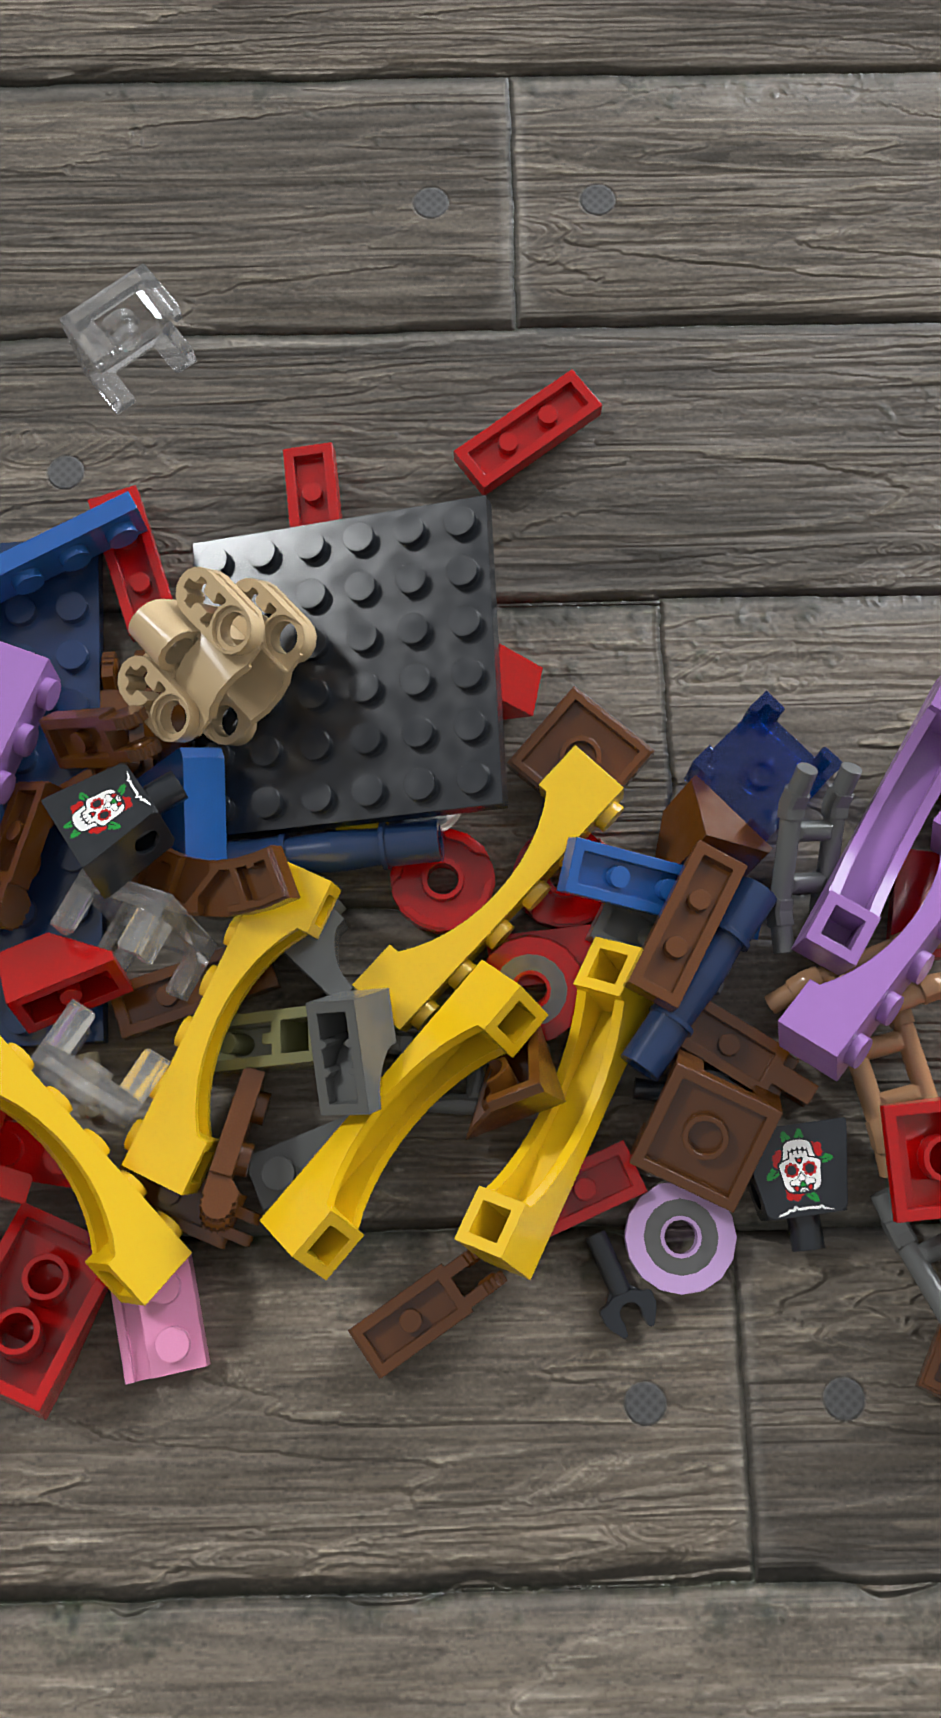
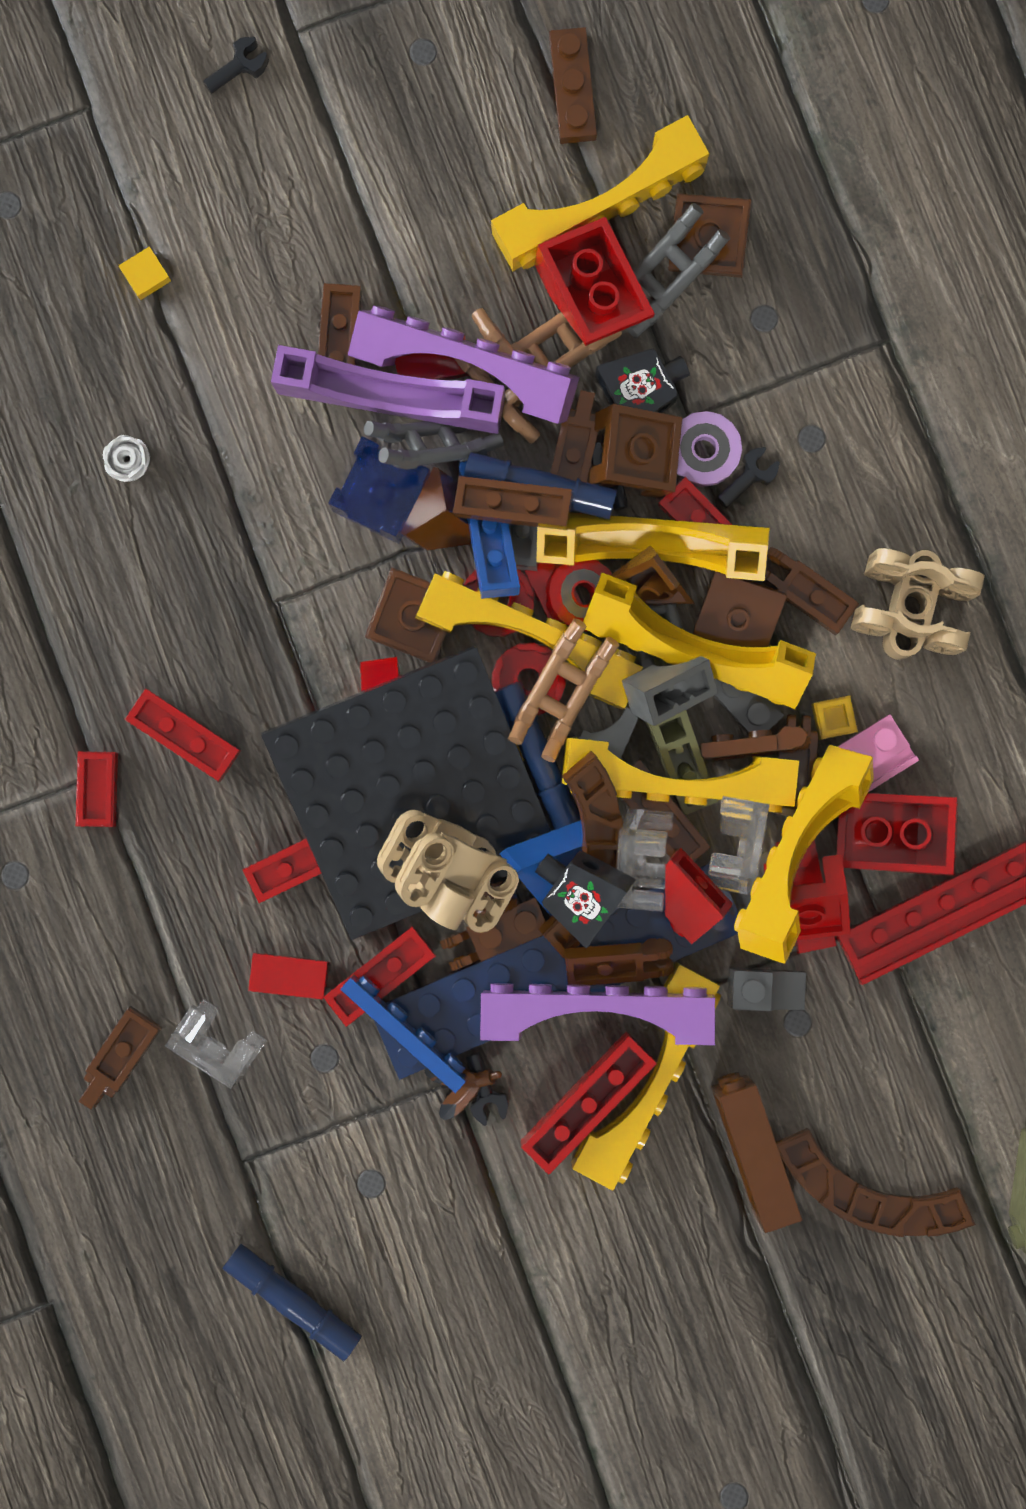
camera: 105 degrees left, 10 degrees up
(97, 737) = (525, 932): reddish brown hinge -> none
(167, 240) = (118, 1056): none -> reddish brown hinge
(182, 460) = (288, 976): none -> red tile
(234, 1283) = (834, 717): none -> yellow tile
(314, 1454) = (903, 572): none -> tan piece
(372, 899) = (558, 666): none -> medium nougat piece
(424, 1196) = (739, 612): none -> reddish brown plate
(499, 319) = (96, 789): none -> red tile
(914, 466) = (116, 452): none -> white plate

